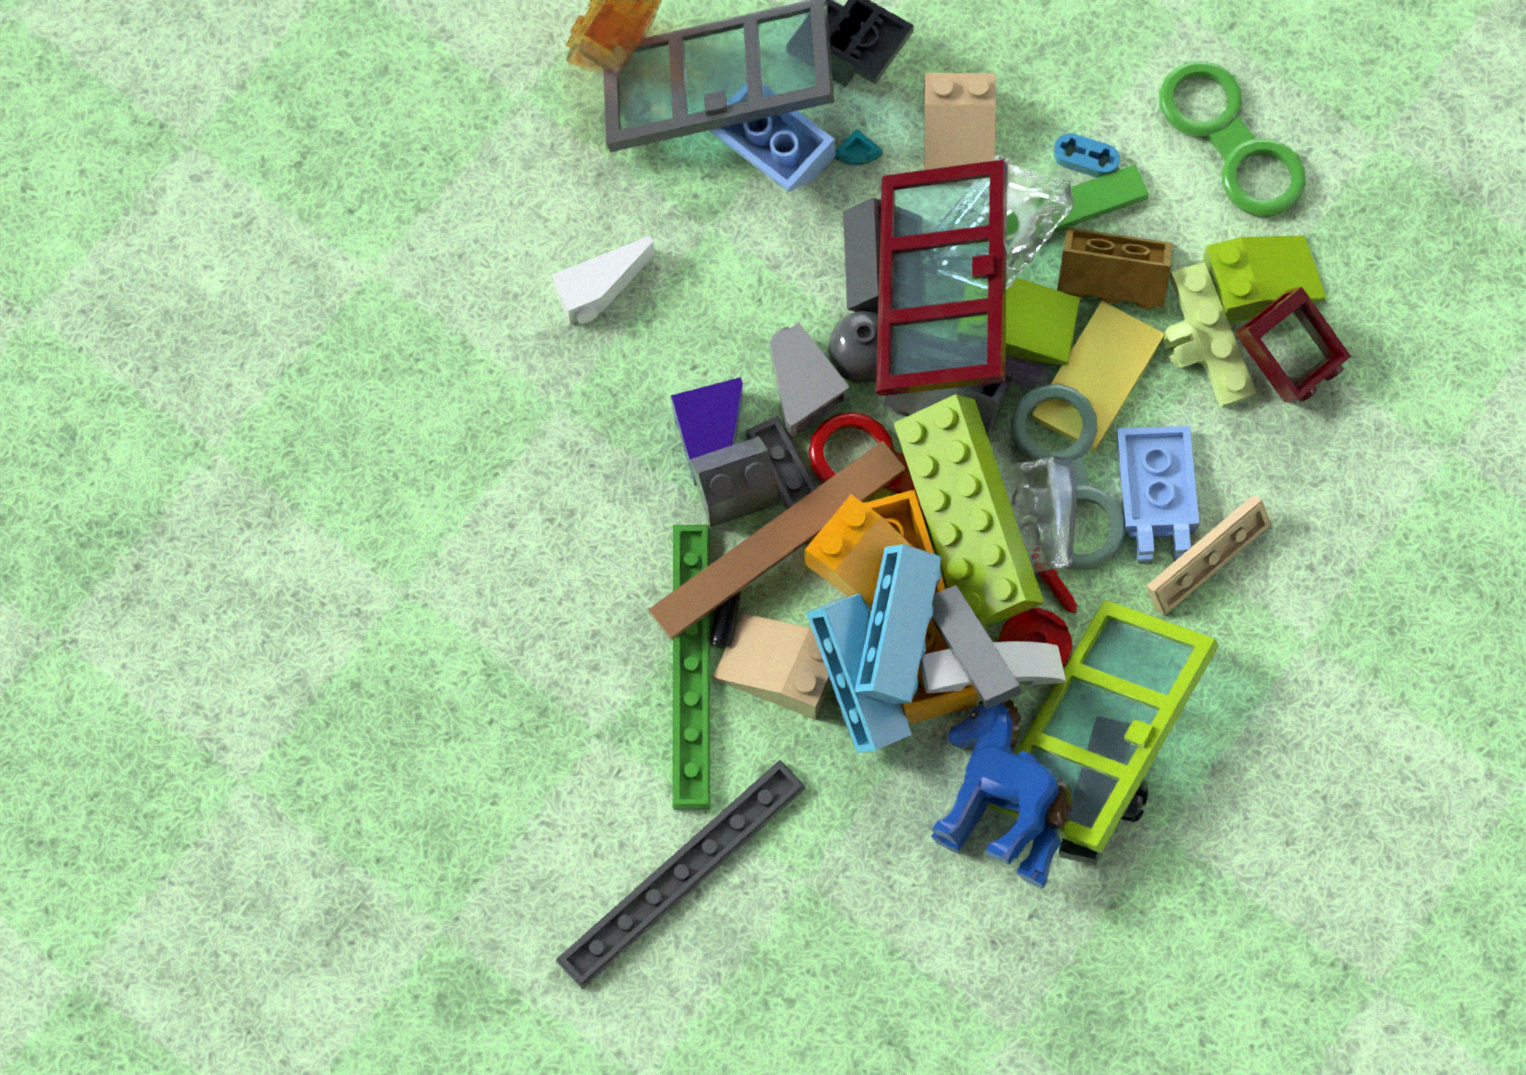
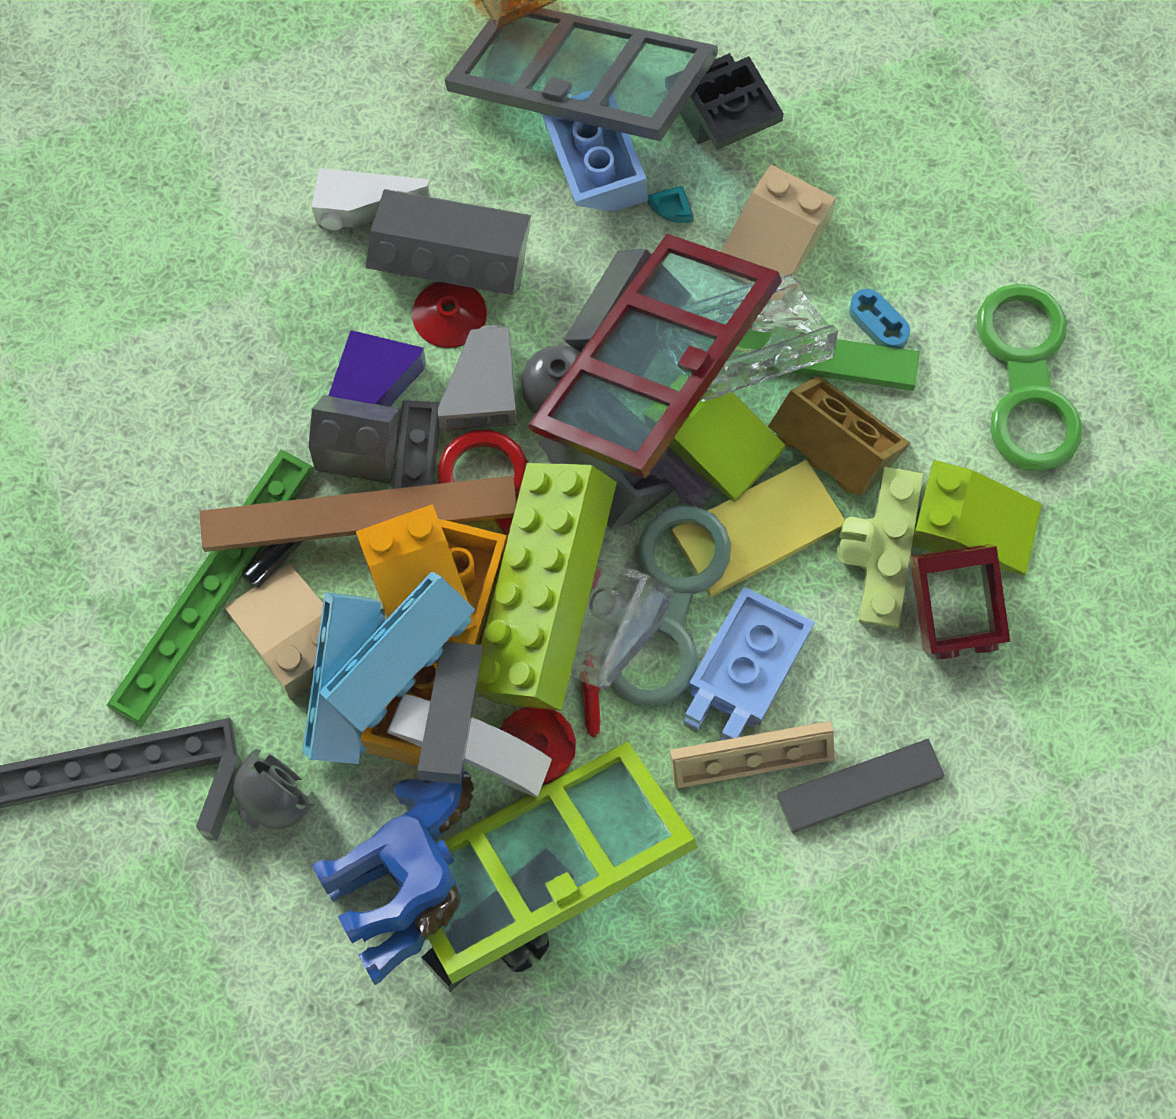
camera: 30 degrees right, 0 degrees up
(702, 278) = (448, 242): none -> dark grey slope
(733, 353) = (452, 327): none -> red dish
(816, 823) = (219, 797): none -> dark grey tile
(856, 798) = (269, 793): none -> dark grey cylinder
(1303, 533) = (860, 785): none -> dark grey tile

